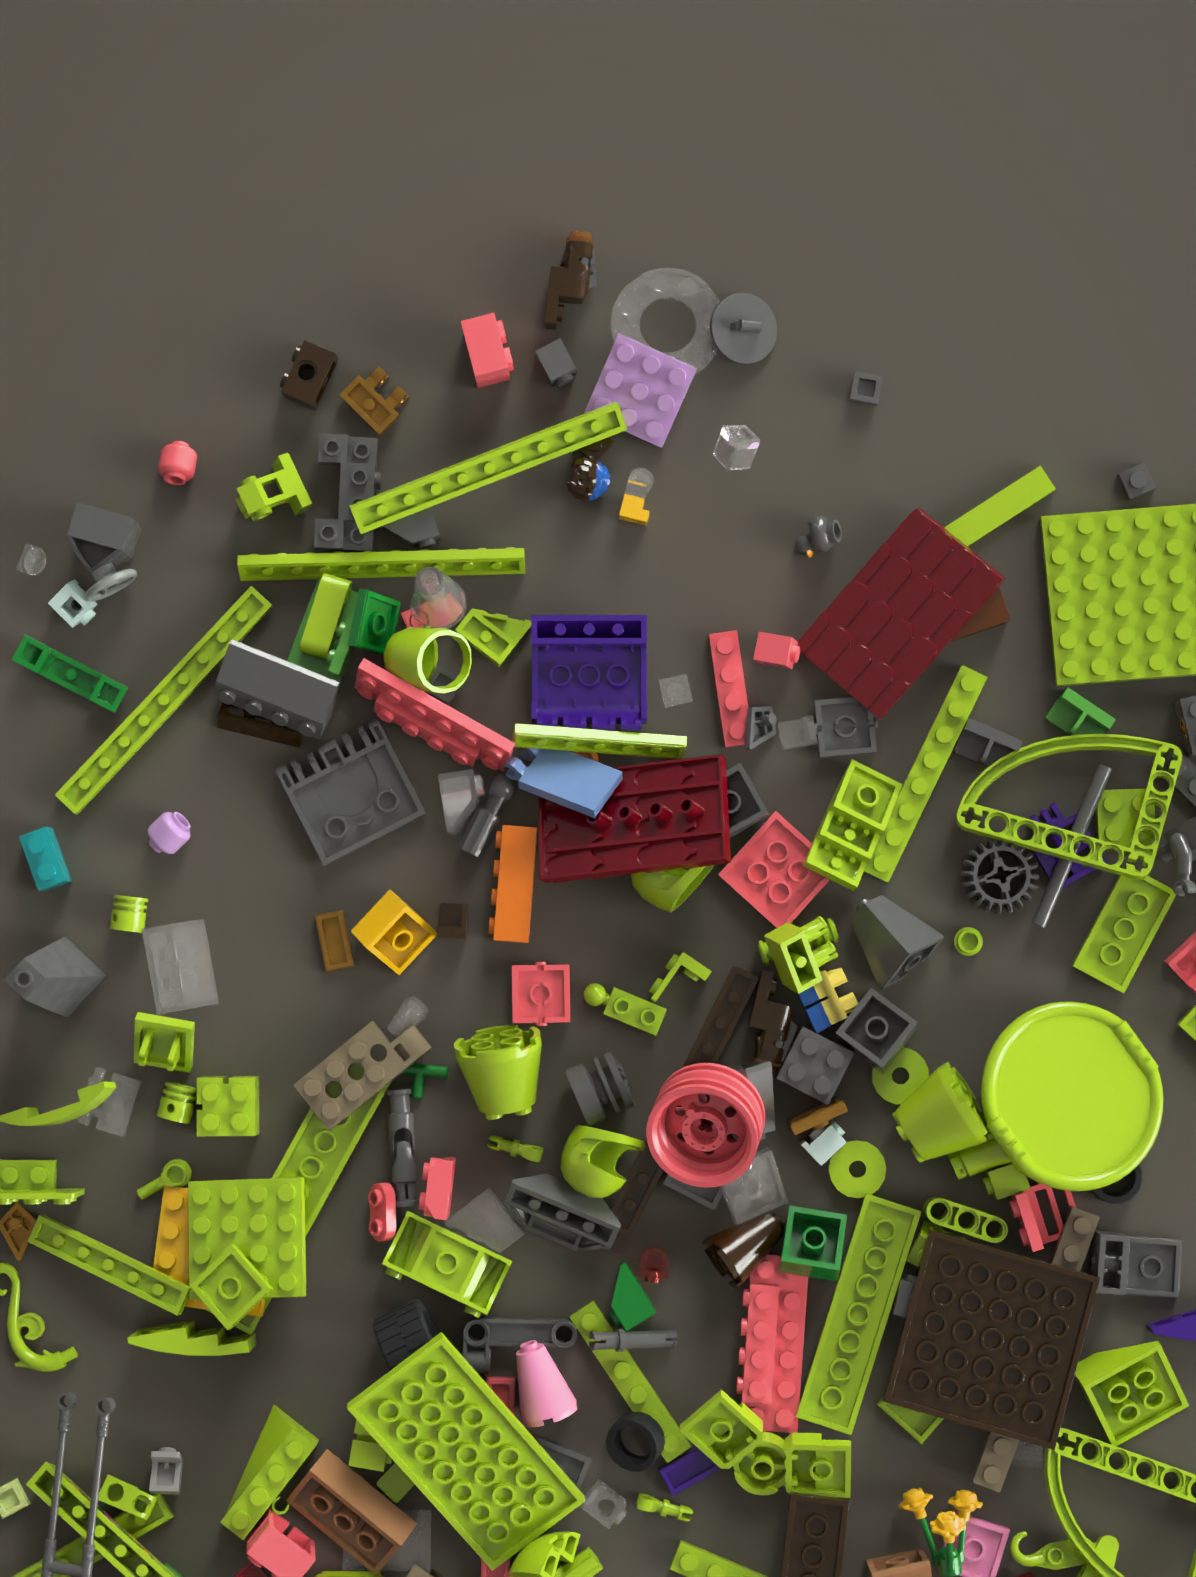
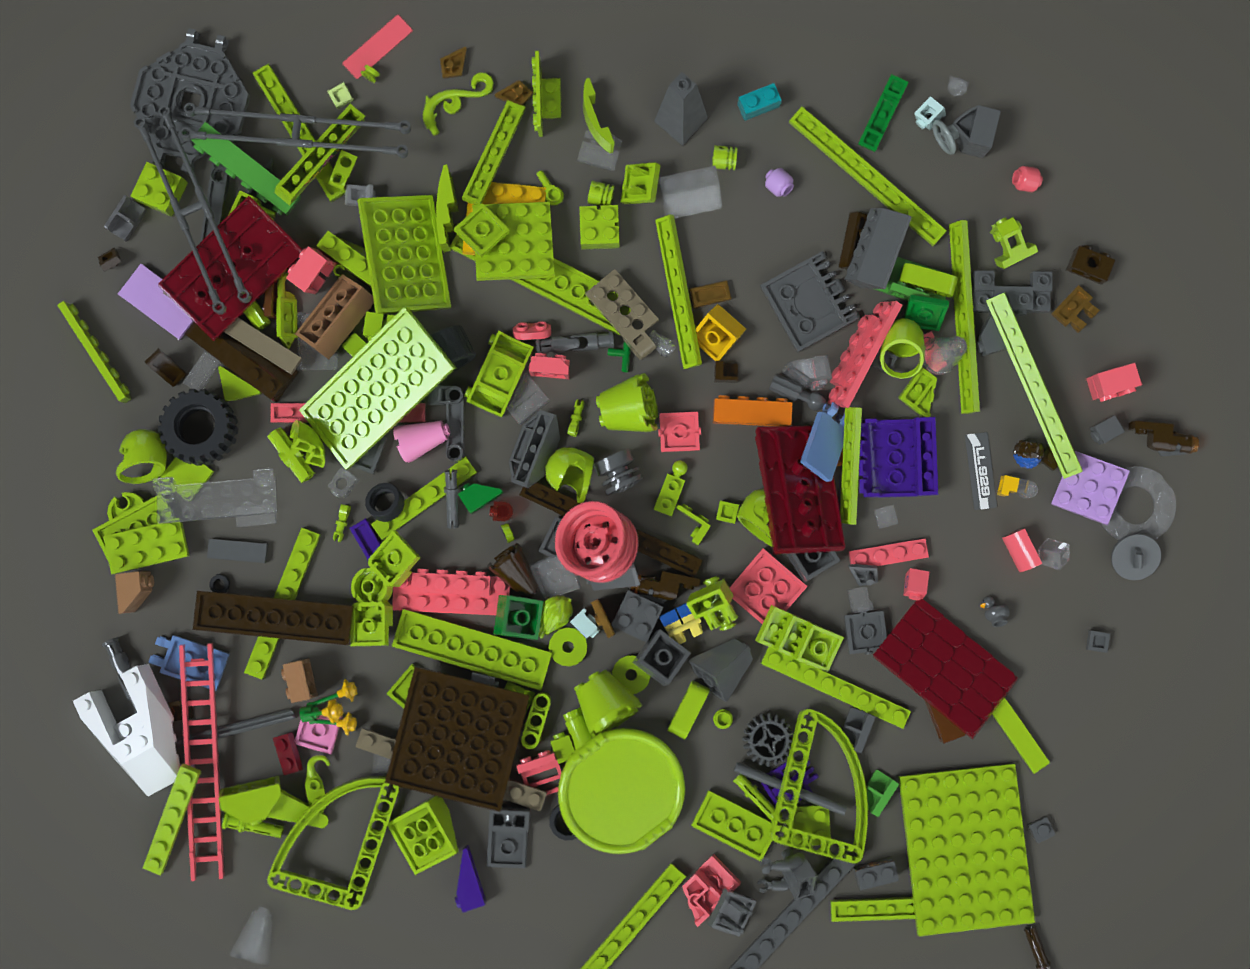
camera: 85 degrees right, 0 degrees up
(260, 1406) = (404, 253): none -> lime plate
(329, 989) = (678, 291): none -> lime tile
(610, 548) = (981, 471): none -> dark grey sticker
(663, 925) = (727, 512): none -> lime plate
(685, 1256) = (507, 532): none -> lime tile
(730, 494) = (1022, 550): none -> coral brick
(809, 1187) = (555, 614): none -> lime hair
(953, 992) = (688, 709): none -> lime beam
(1078, 899) = (753, 793): none -> lime pin

